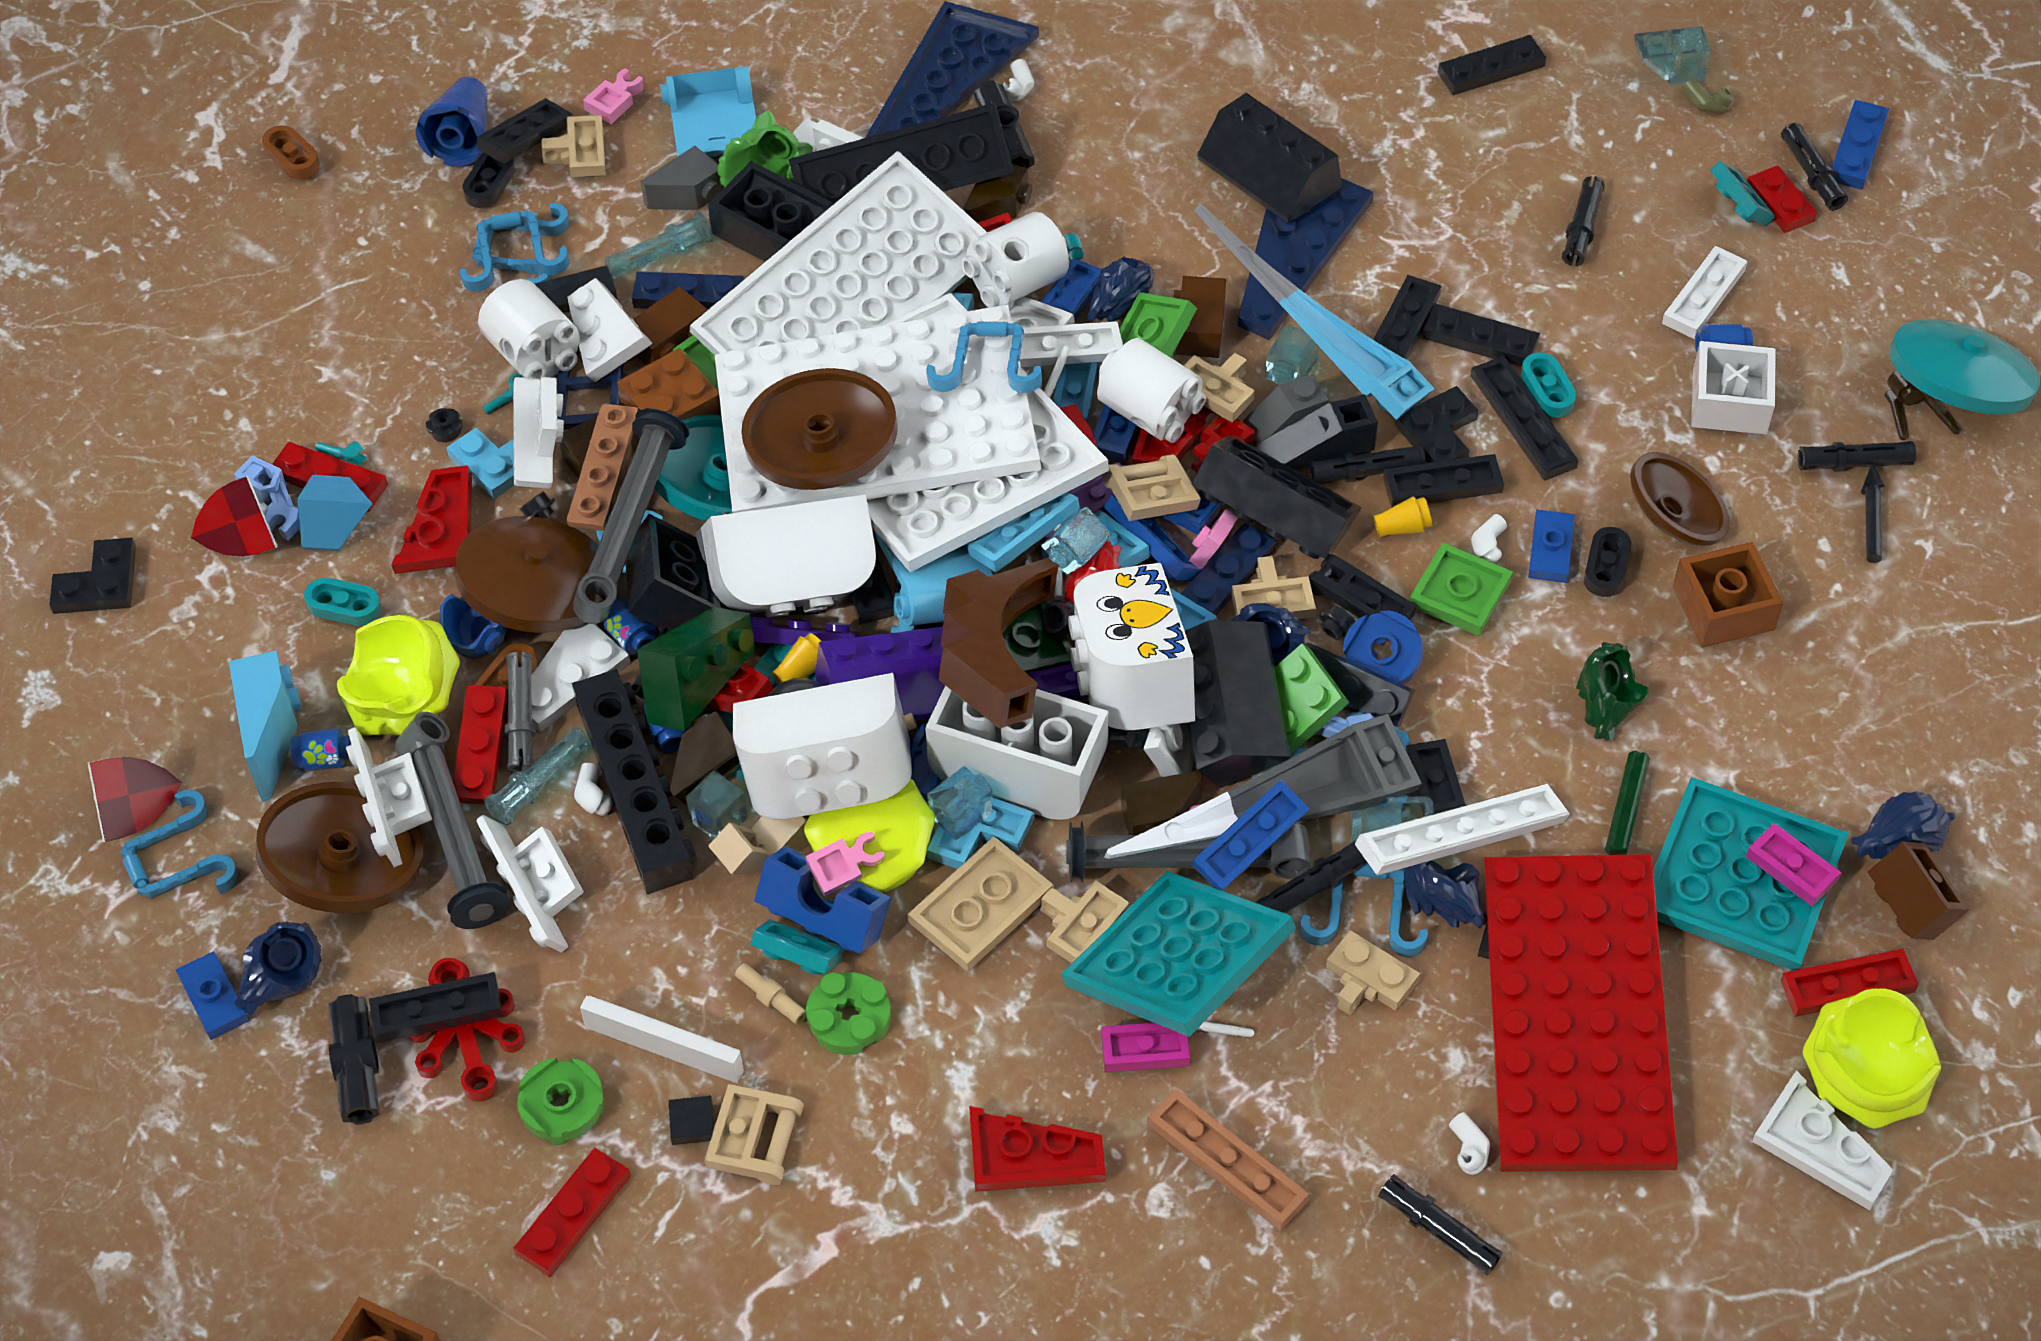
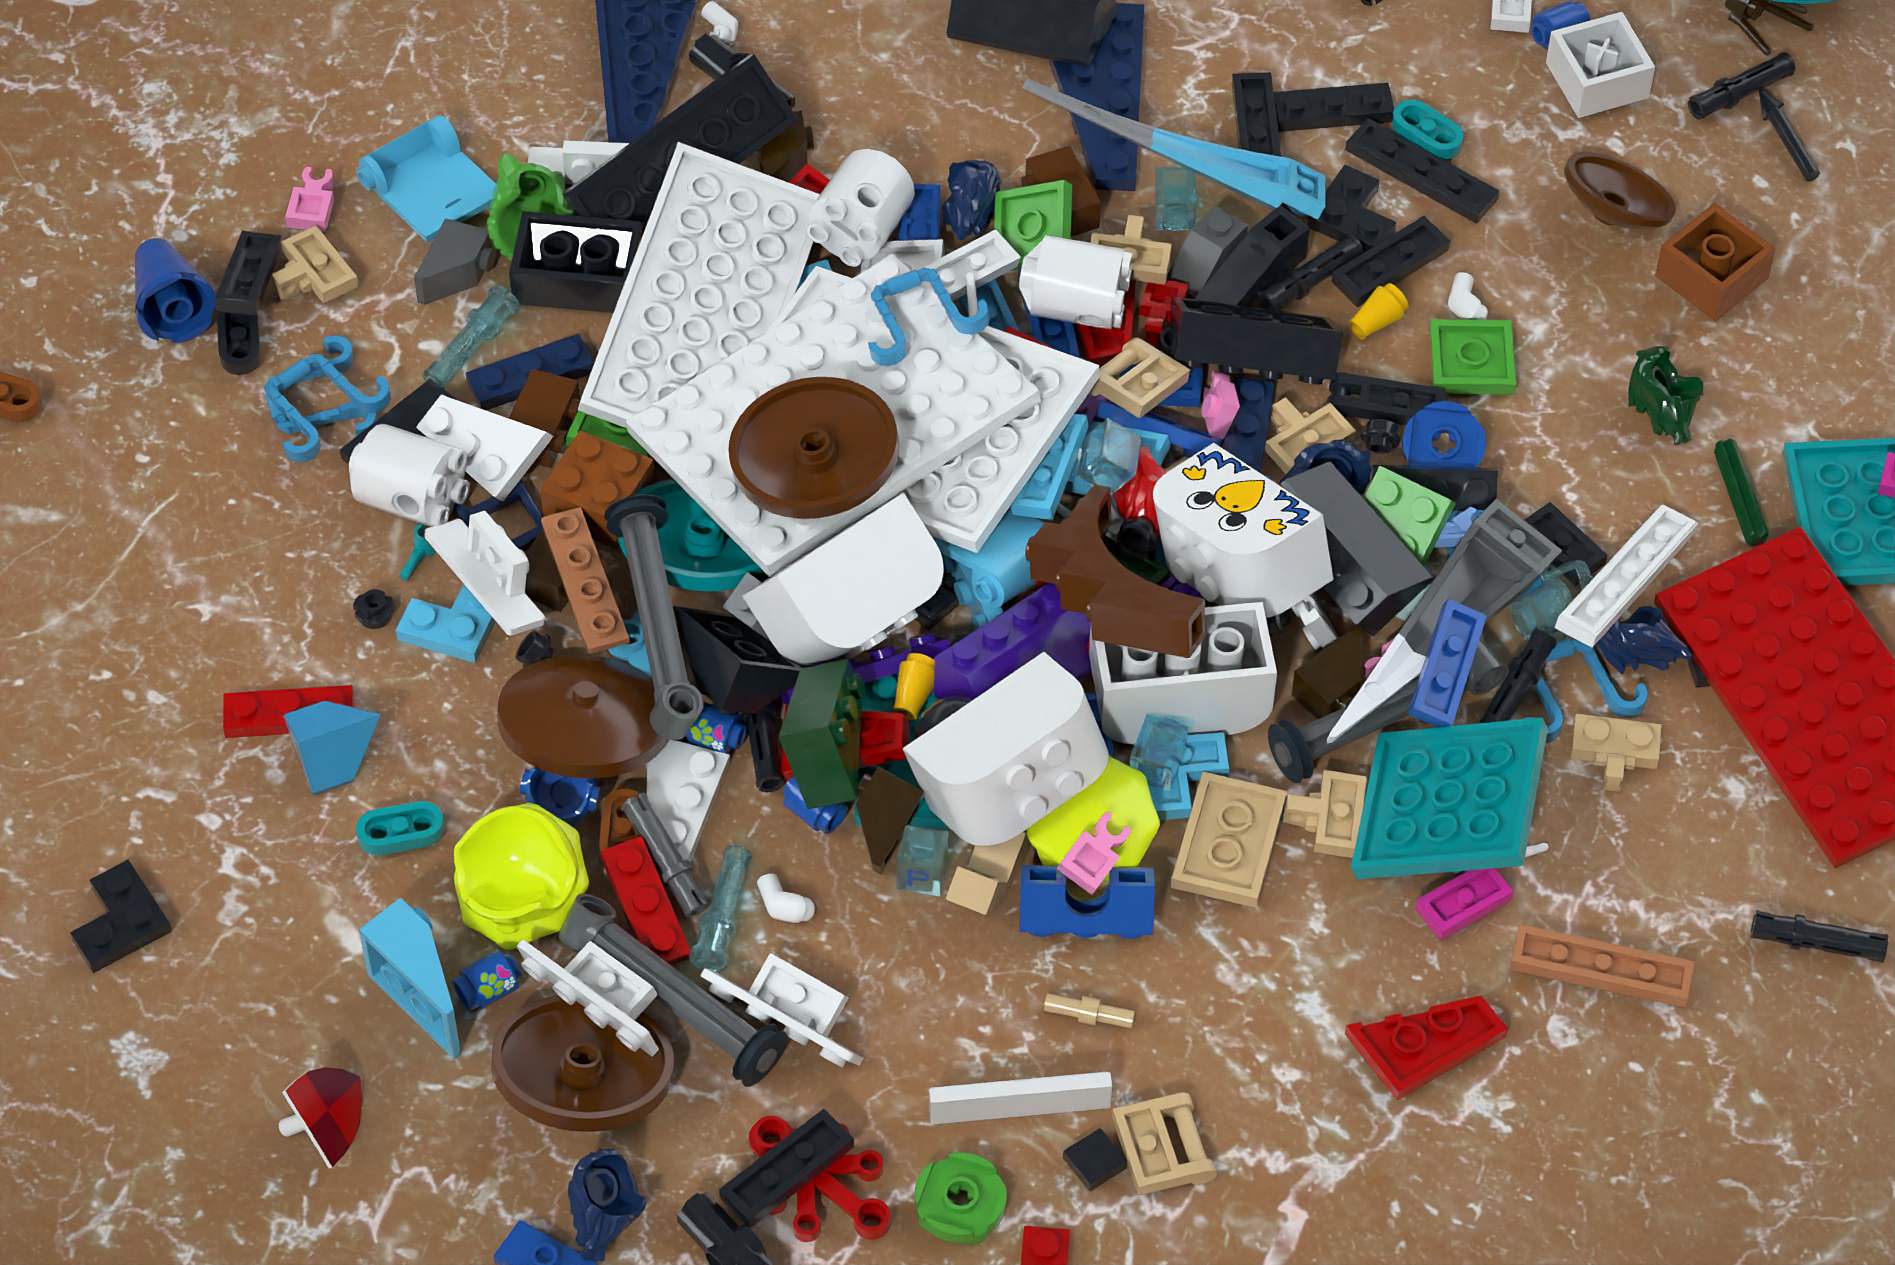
camera: 30 degrees left, 0 degrees up
(203, 867) = (381, 1183): dark azure piece -> none
(234, 521) = (233, 796): shield -> none
(274, 495) = (267, 762): light blue piece -> none
(349, 454) = (298, 678): teal hand -> none
(440, 522) = (445, 709): red wing -> none
(657, 864) = (894, 942): black brick -> none
(808, 951) = (1103, 955): teal plate -> none
(845, 990) = (1176, 972): bright green plate -> none
(1475, 1144) = (1802, 854): white arm -> none
(1551, 546) = (1524, 282): blue plate -> none
(1606, 564) = (1588, 279): black plate -> none

